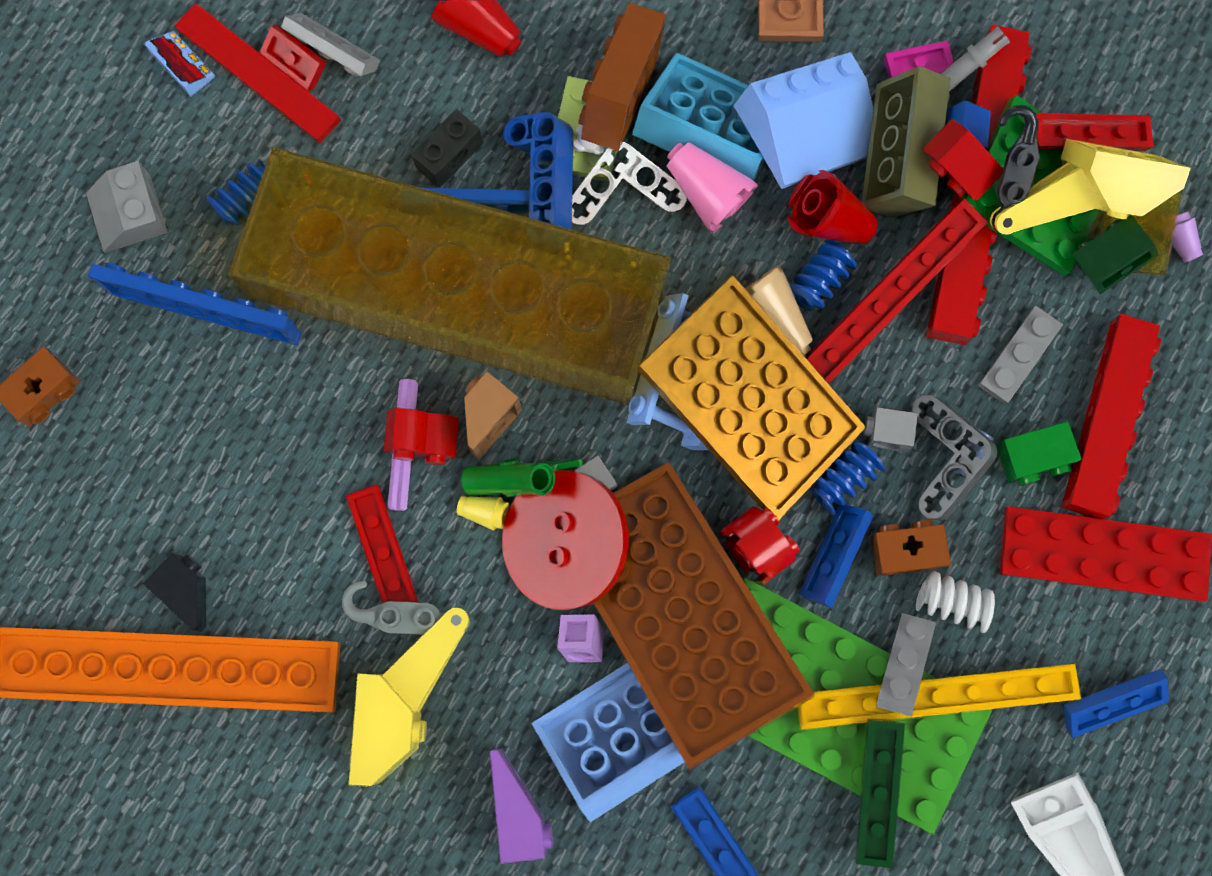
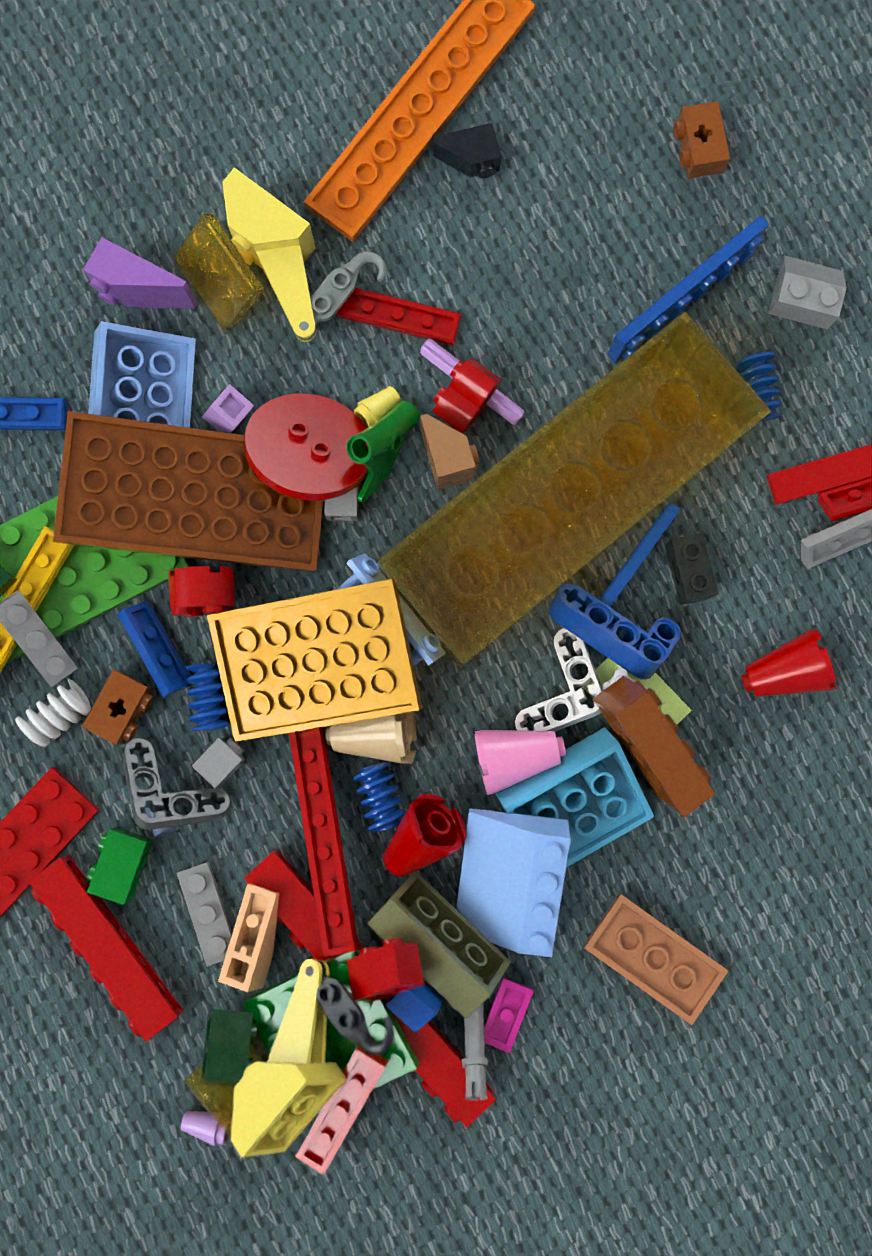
camera: 120 degrees right, 5 degrees up
(455, 742) = (218, 271): none -> clear yellow plate
(1016, 296) = (251, 940): none -> light nougat slope

